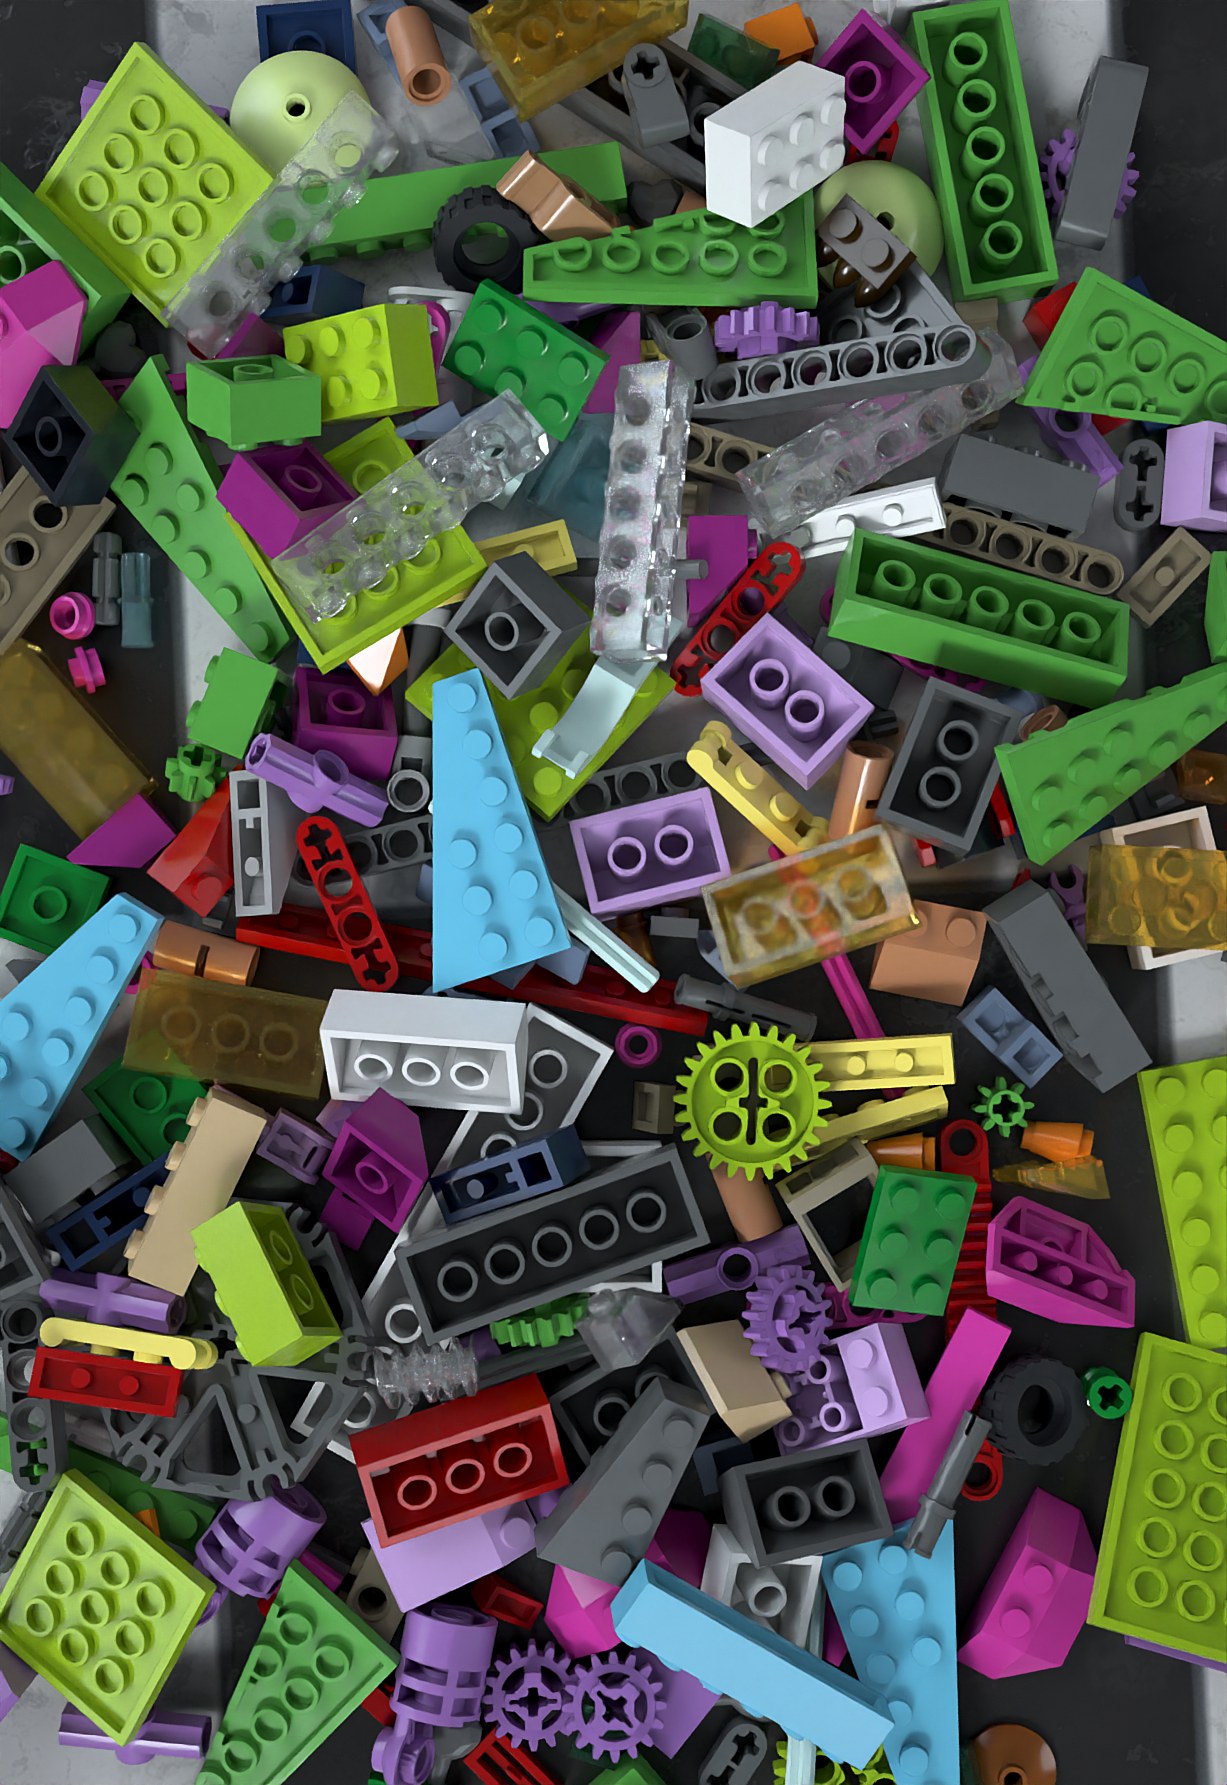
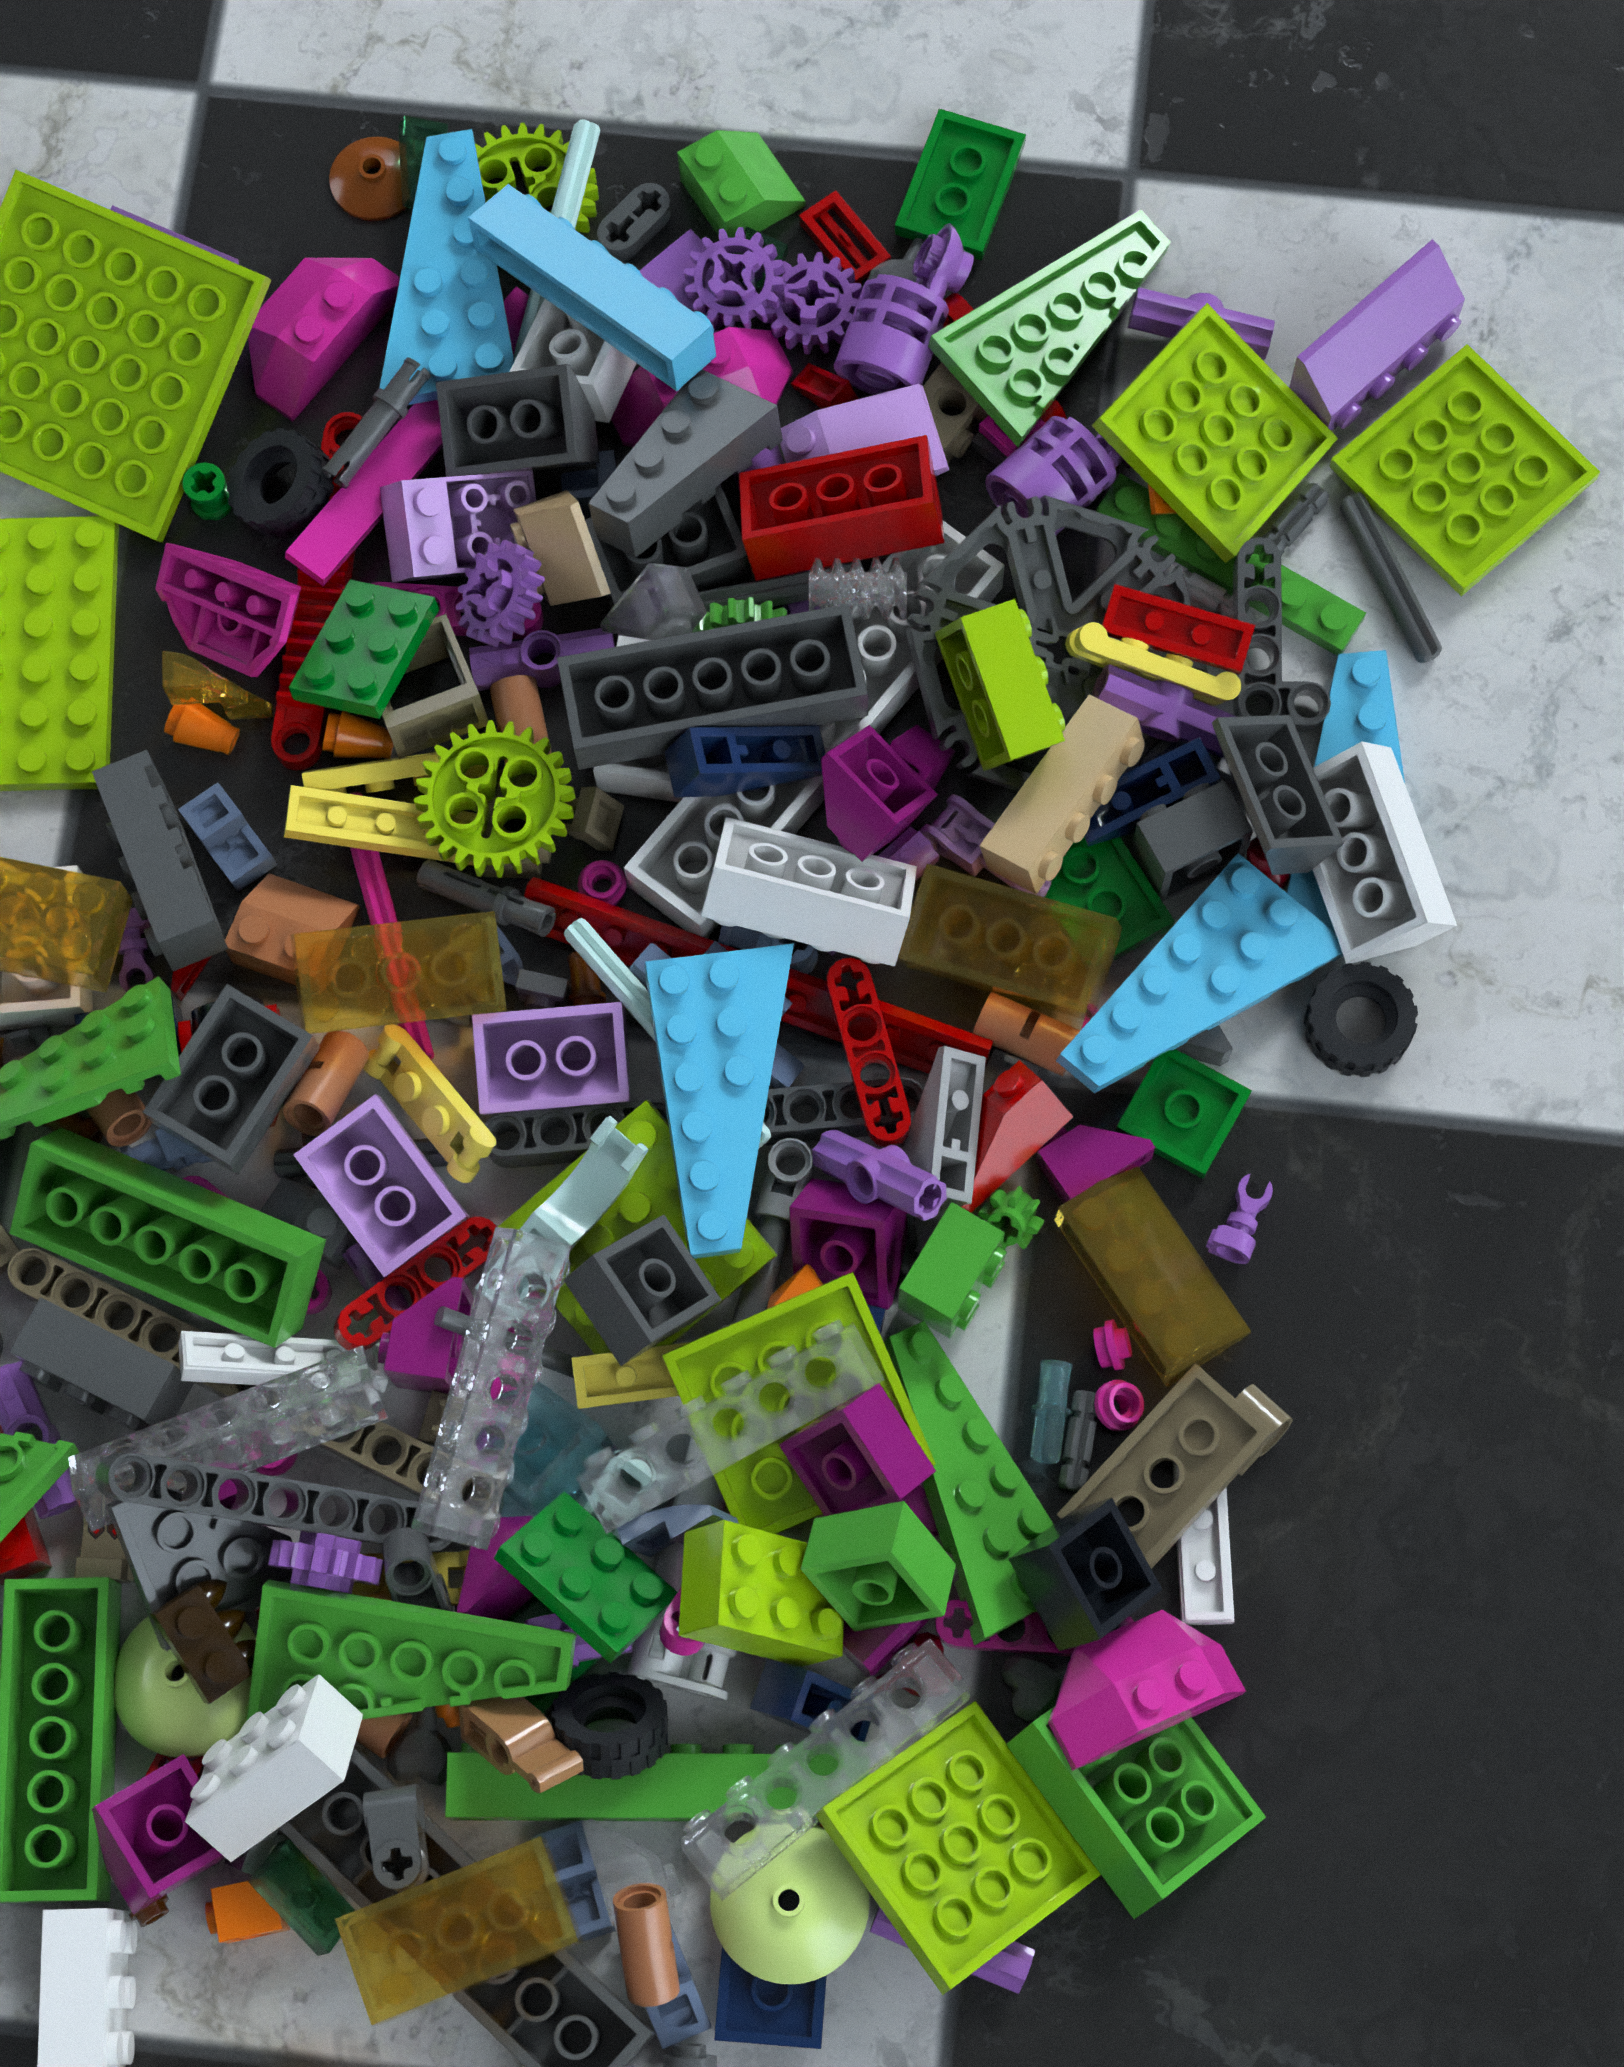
camera: 170 degrees left, 15 degrees down
(1011, 1115) = (239, 761): bright green gear -> none

